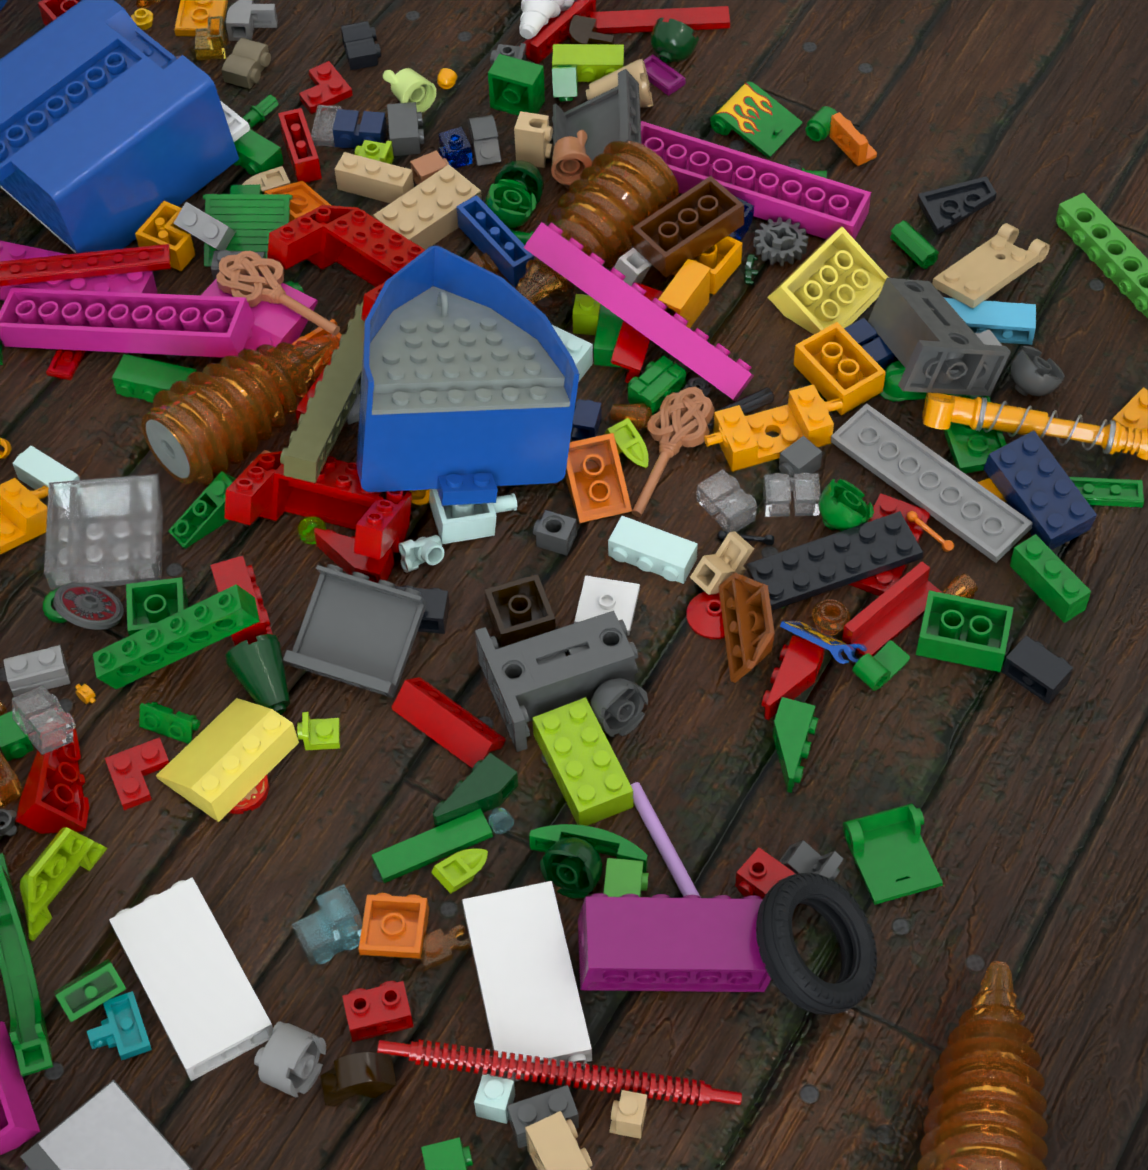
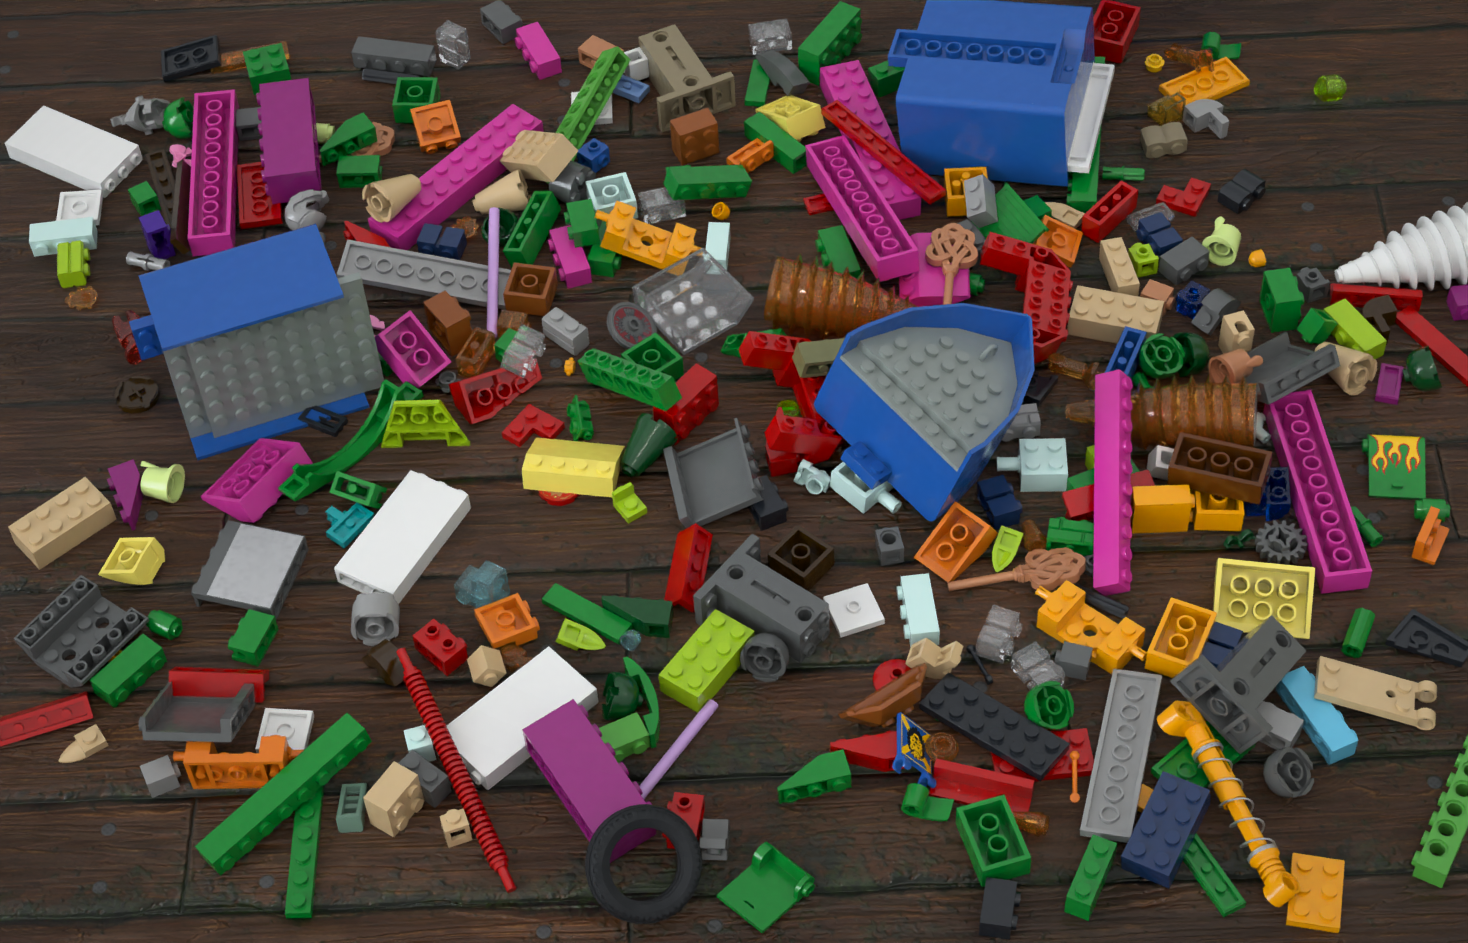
camera: 60 degrees right, 5 degrees down
(439, 977) = (486, 666): none -> tan brick

